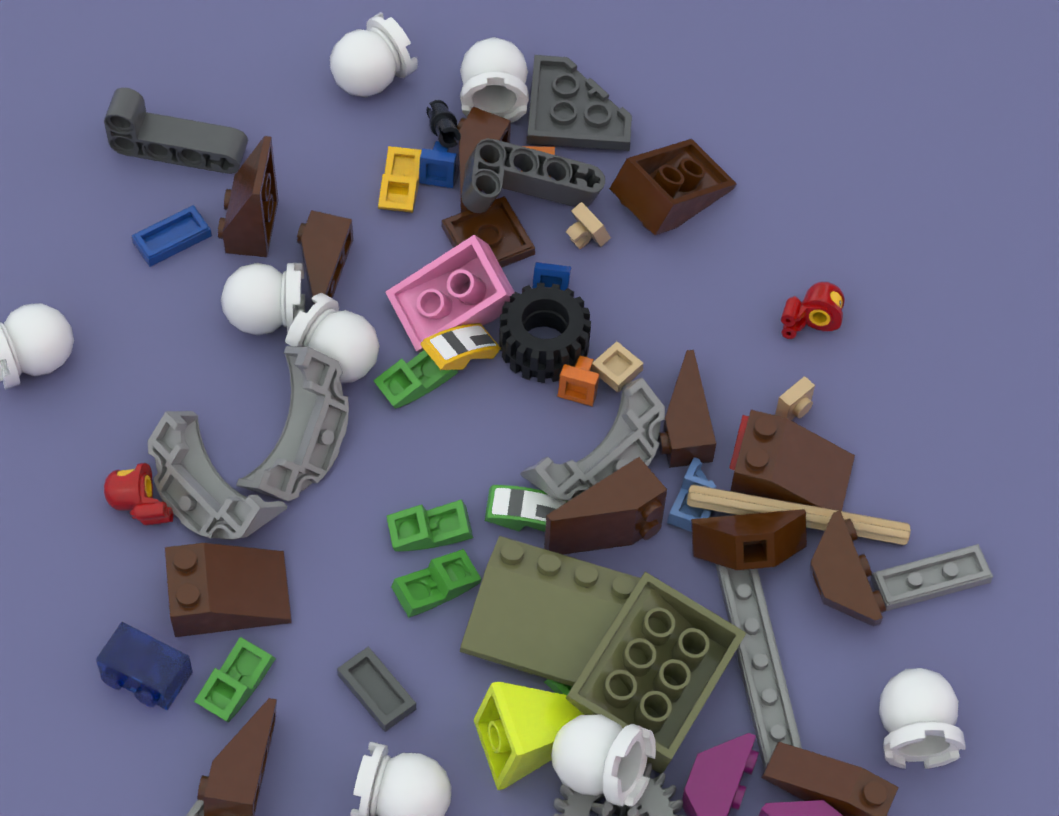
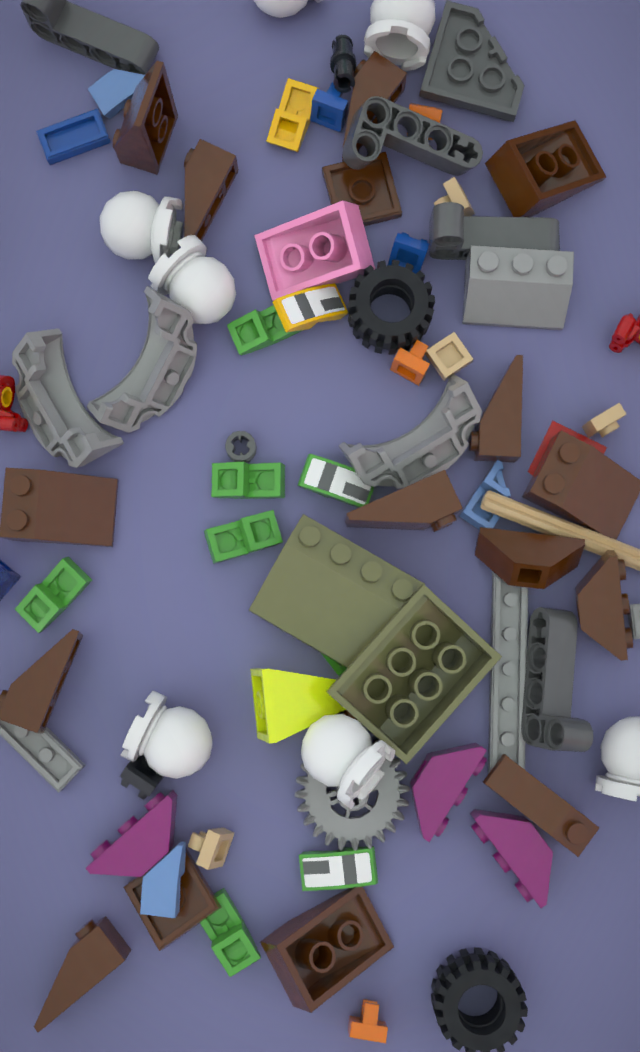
camera: 15 degrees right, 25 degrees up
(209, 185) = (114, 90): none -> medium blue slope
(376, 689) = (172, 626): dark grey tile -> none
(410, 484) = (251, 445): none -> dark grey bush
(631, 254) = (454, 233): none -> dark grey beam
(671, 294) = (517, 287): none -> light grey slope
(811, 687) = (550, 684): none -> dark grey beam

